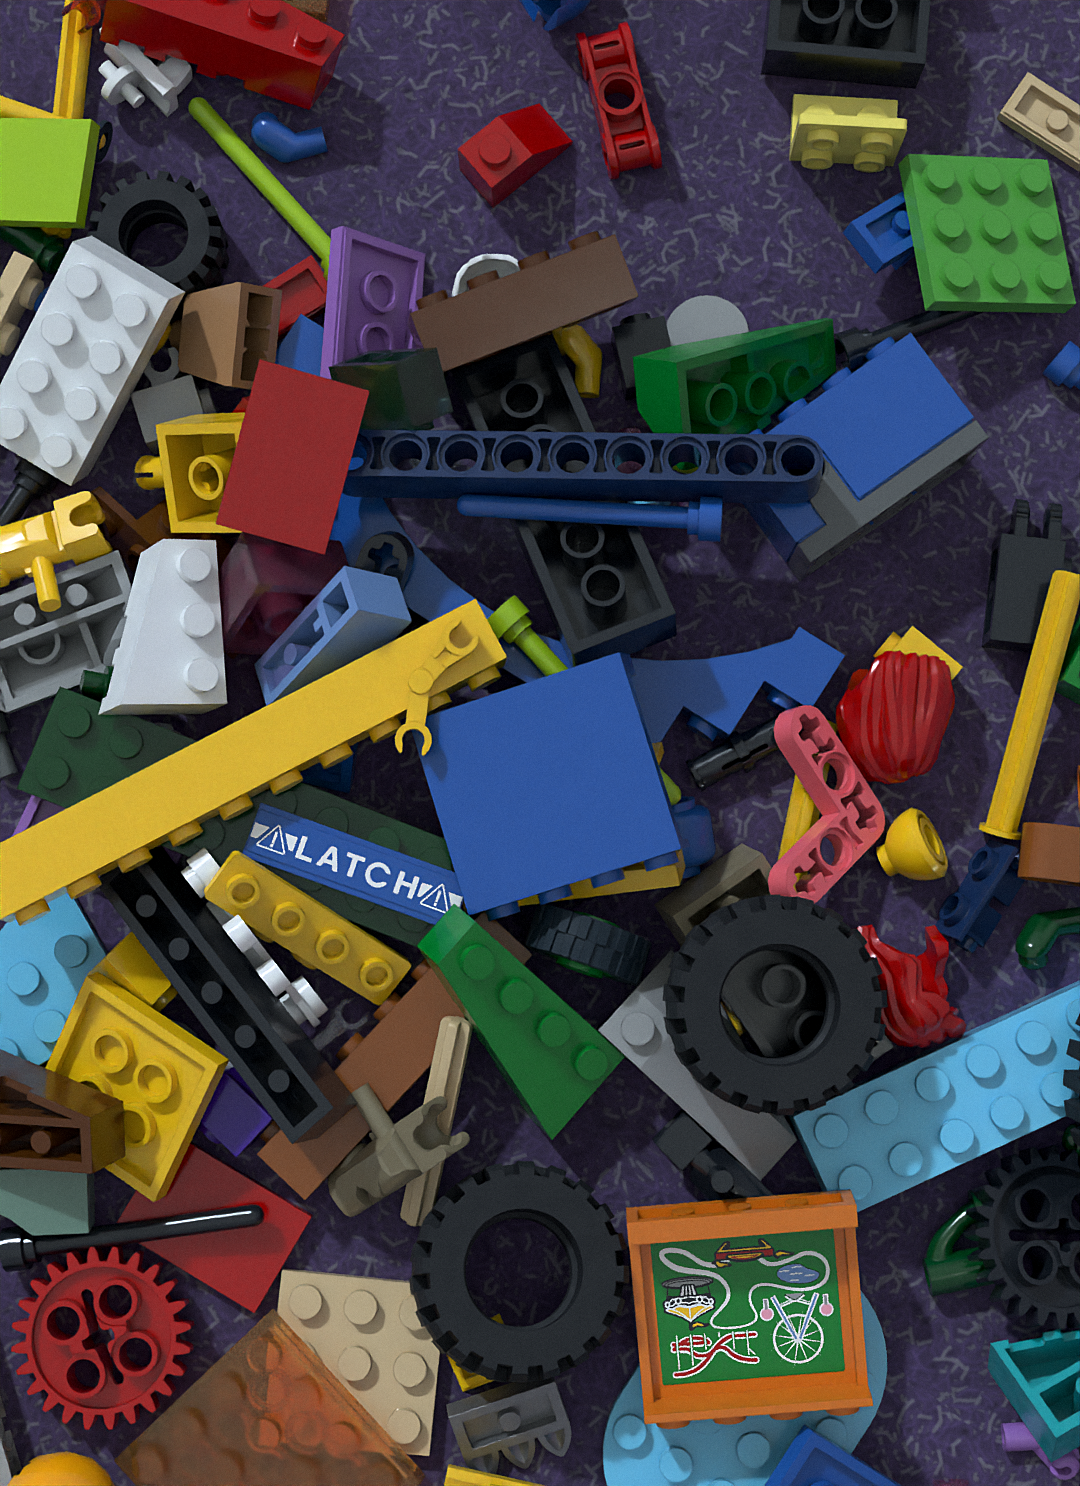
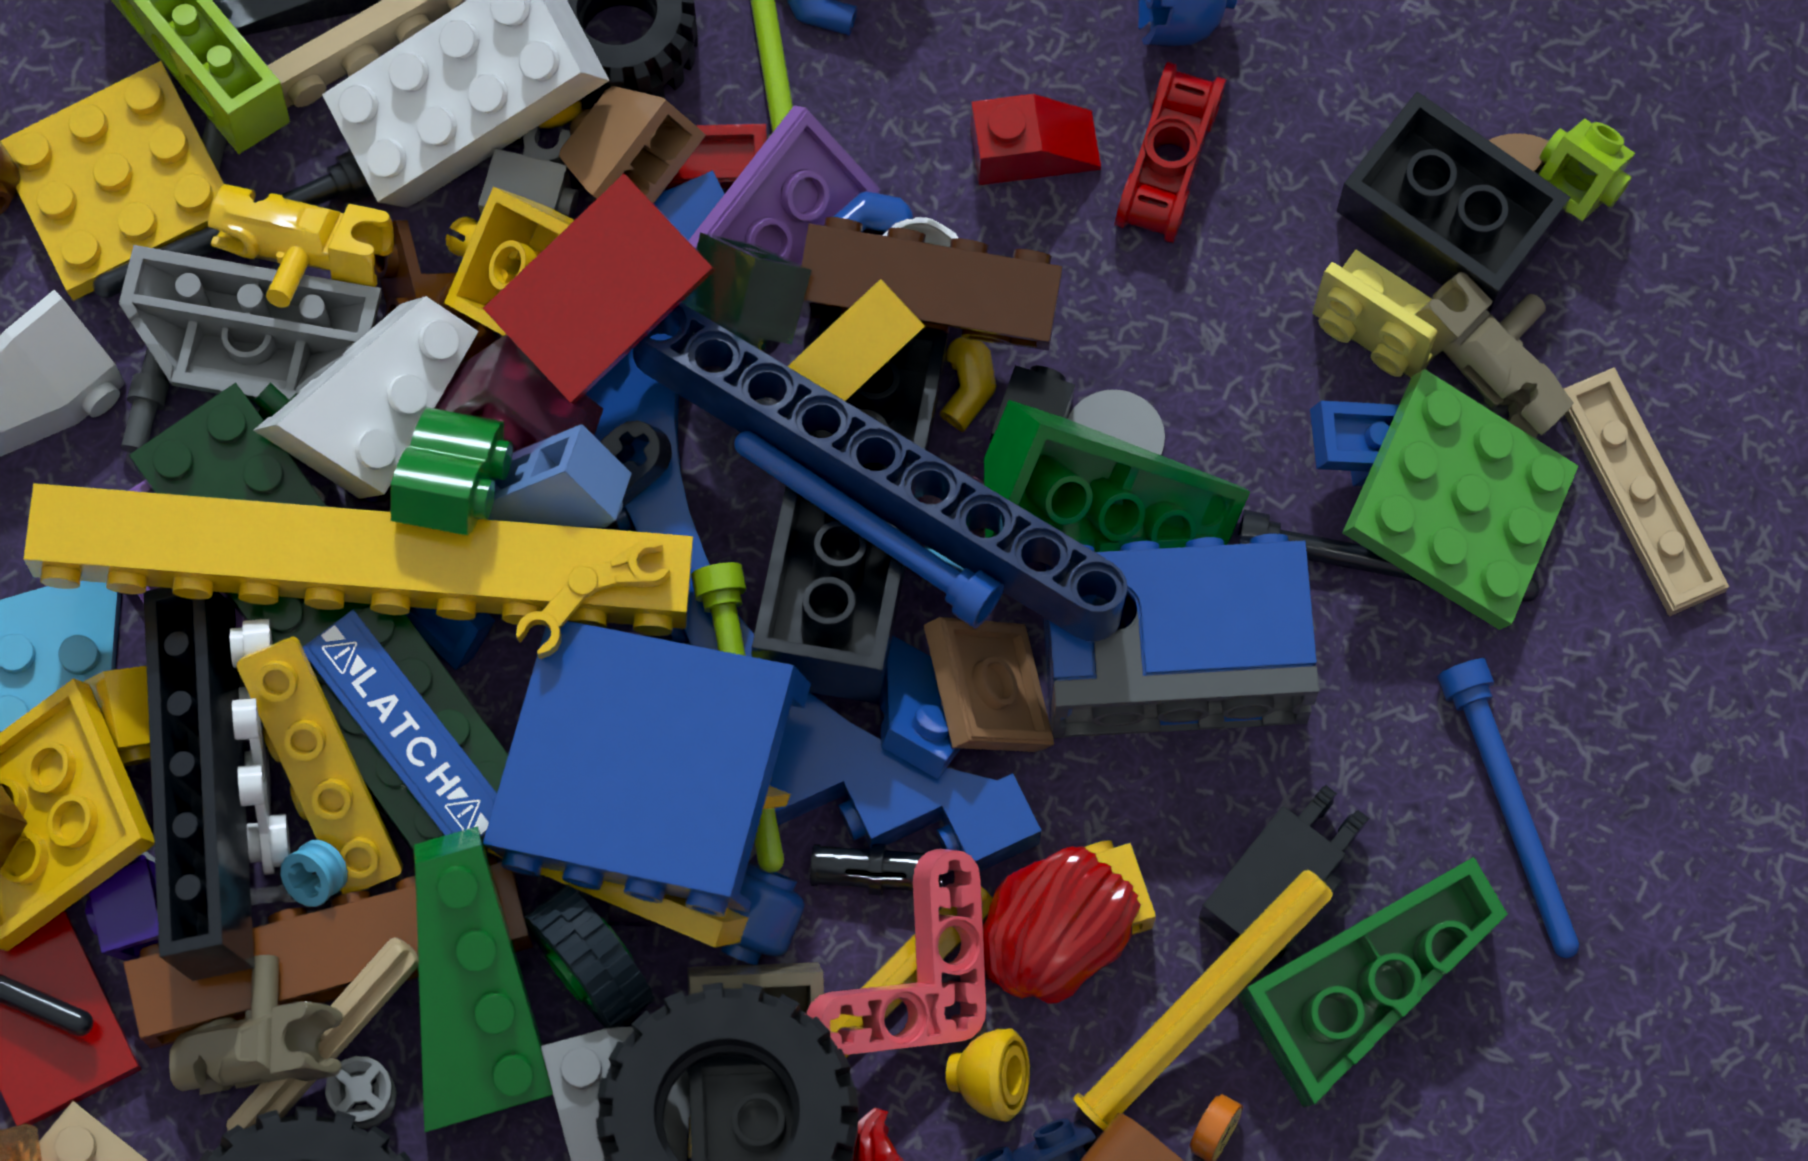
camera: 30 degrees right, 10 degrees down
(269, 660) = (450, 471): none -> green brick
(351, 1005) = (314, 888): none -> medium azure bush
(431, 275) = (876, 211): none -> blue arm
(482, 1136) = (355, 1086): none -> light grey wheel
(502, 381) = (859, 342): none -> yellow tile
(711, 617) = (914, 711): none -> blue wing
(741, 574) = (988, 685): none -> medium nougat tile
(942, 114) = (1494, 355): none -> dark tan piece

